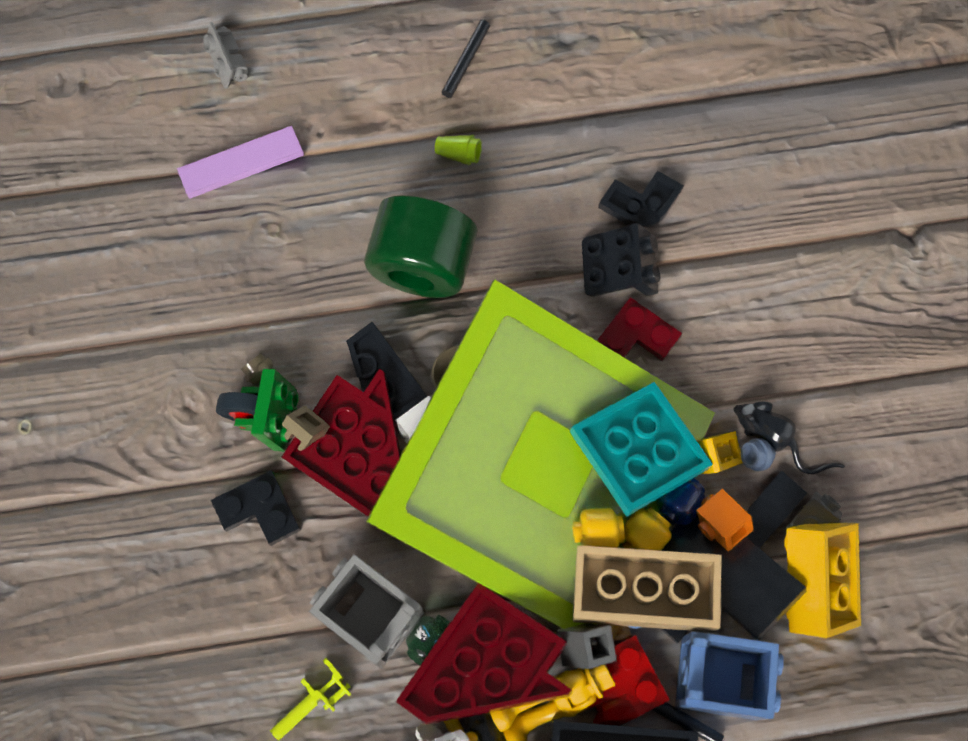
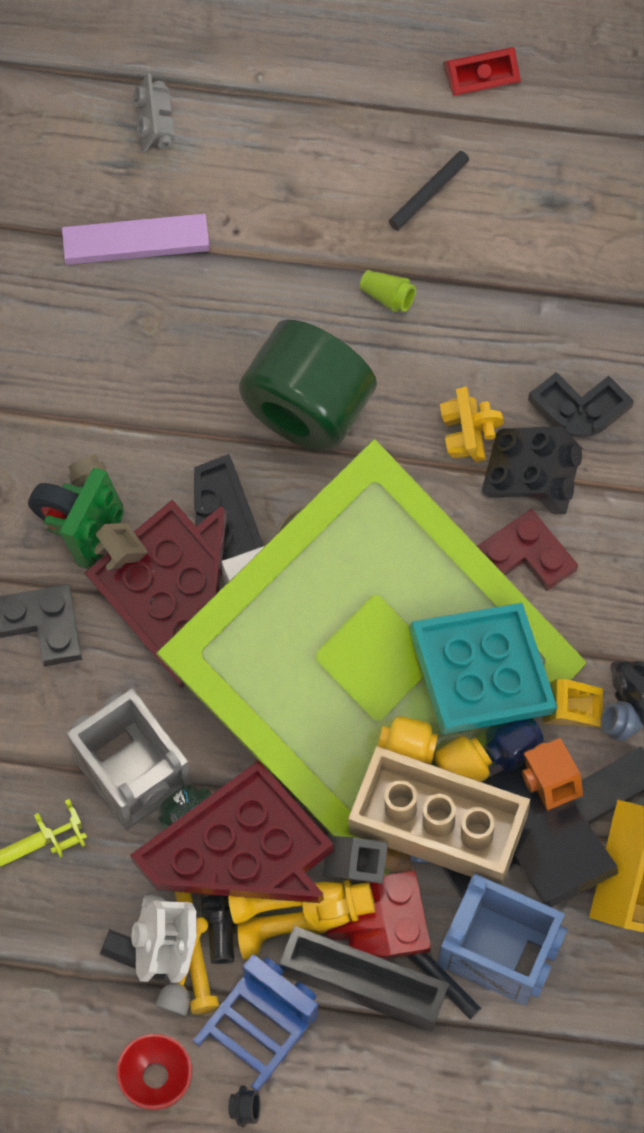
camera: 15 degrees right, 5 degrees down
(551, 231) = (465, 411): none -> yellow hips

